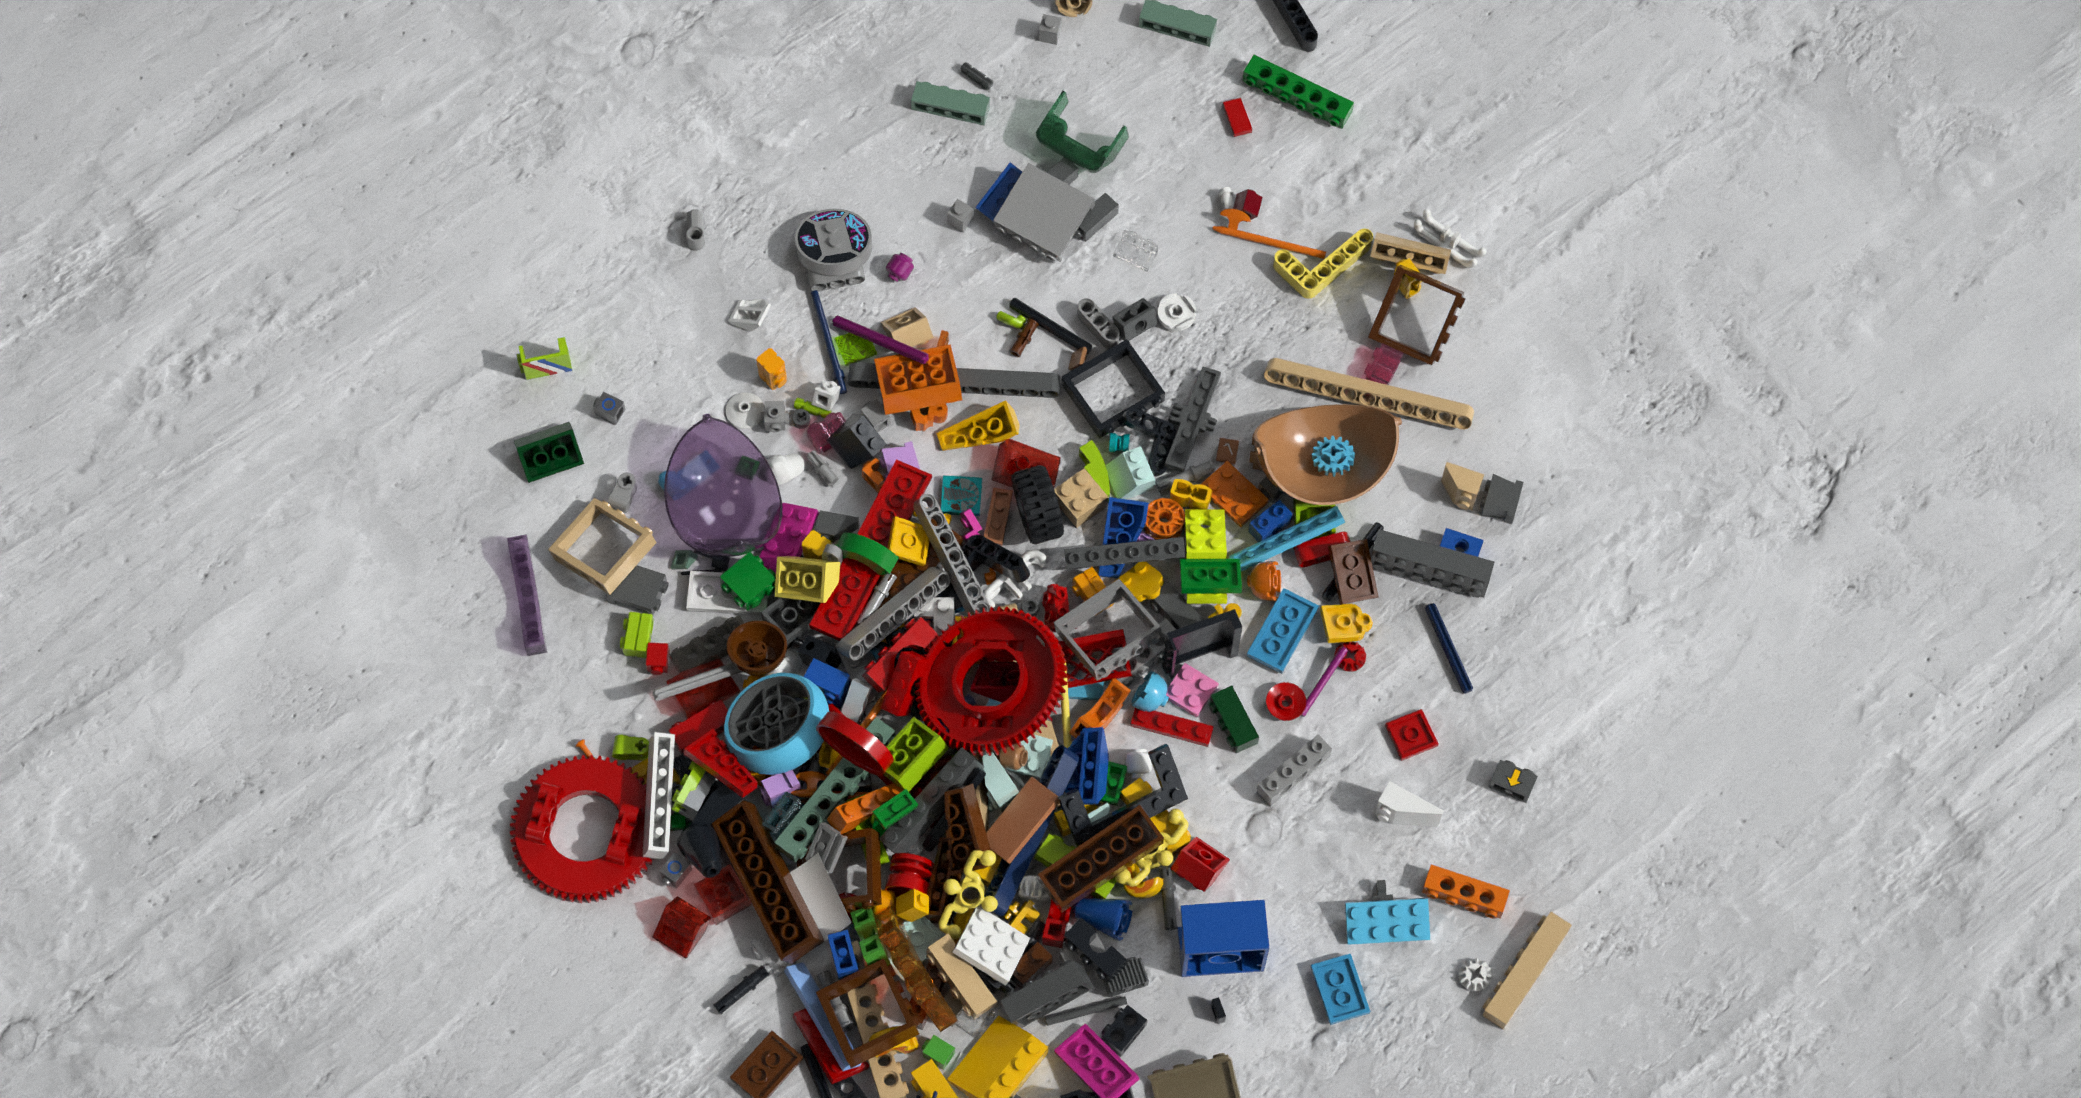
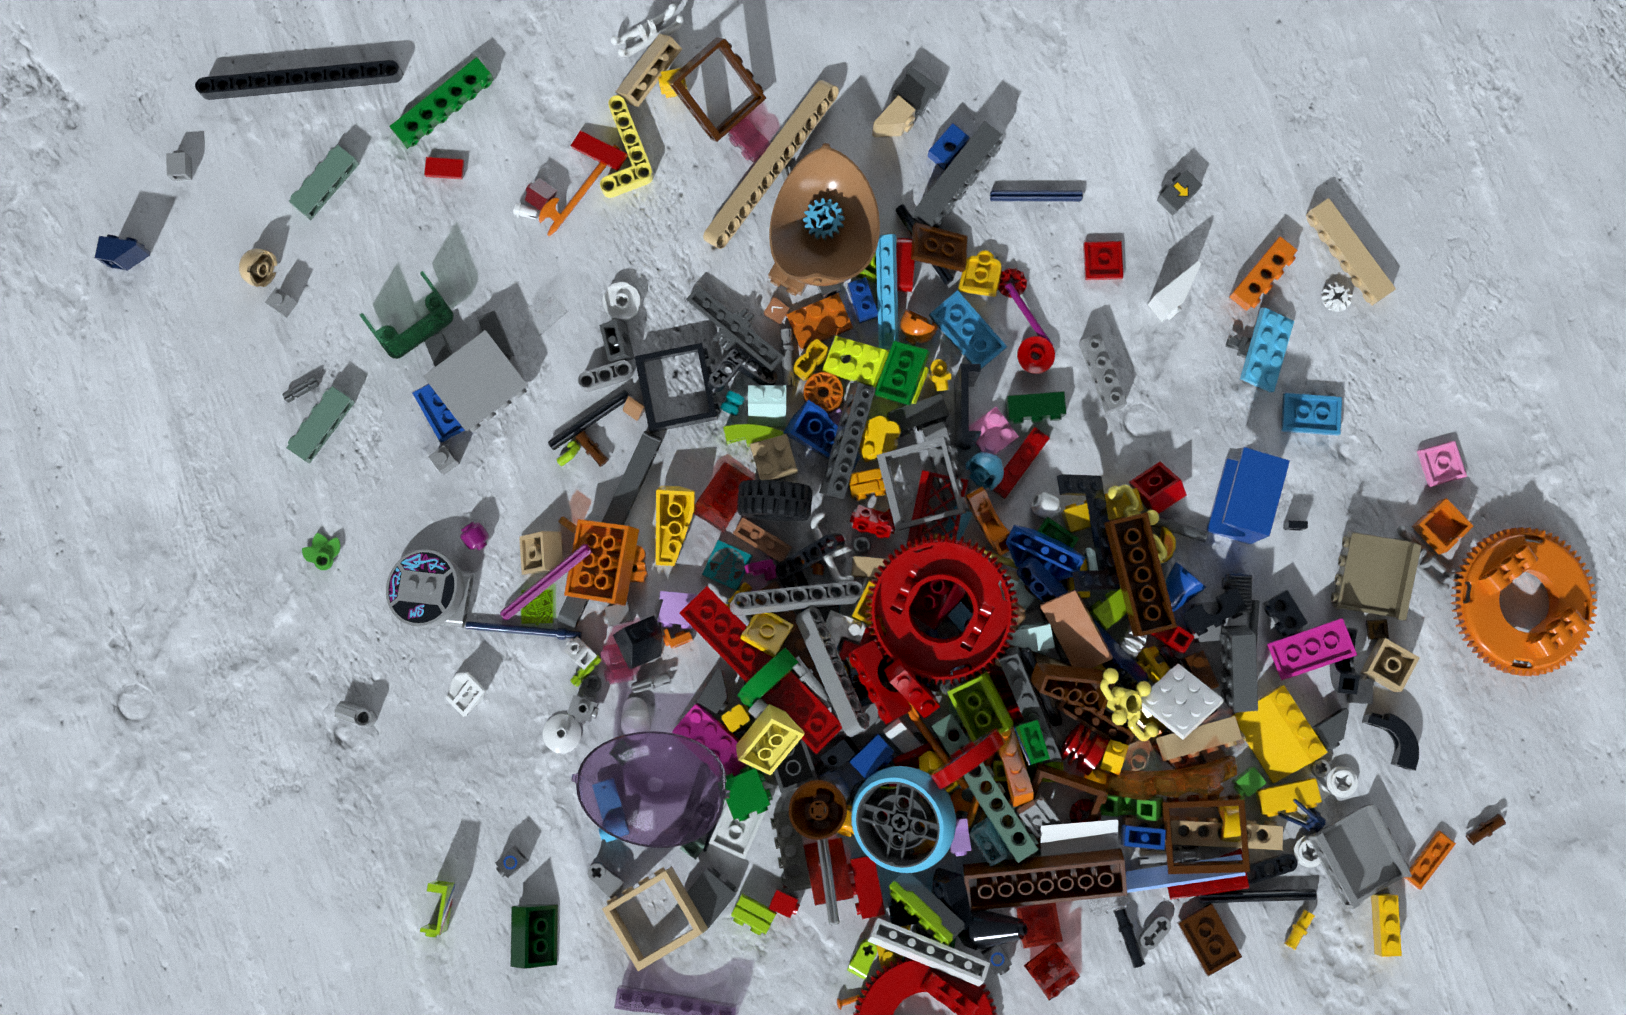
camera: 70 degrees left, 15 degrees up
(717, 760) = (922, 887): red wing -> none
(756, 1009) = (1159, 935): none -> light grey beam
(771, 369) = (535, 694): light orange brick -> none
(835, 146) = (320, 549): none -> bright green plate
(1313, 239) = (599, 150): none -> red tile

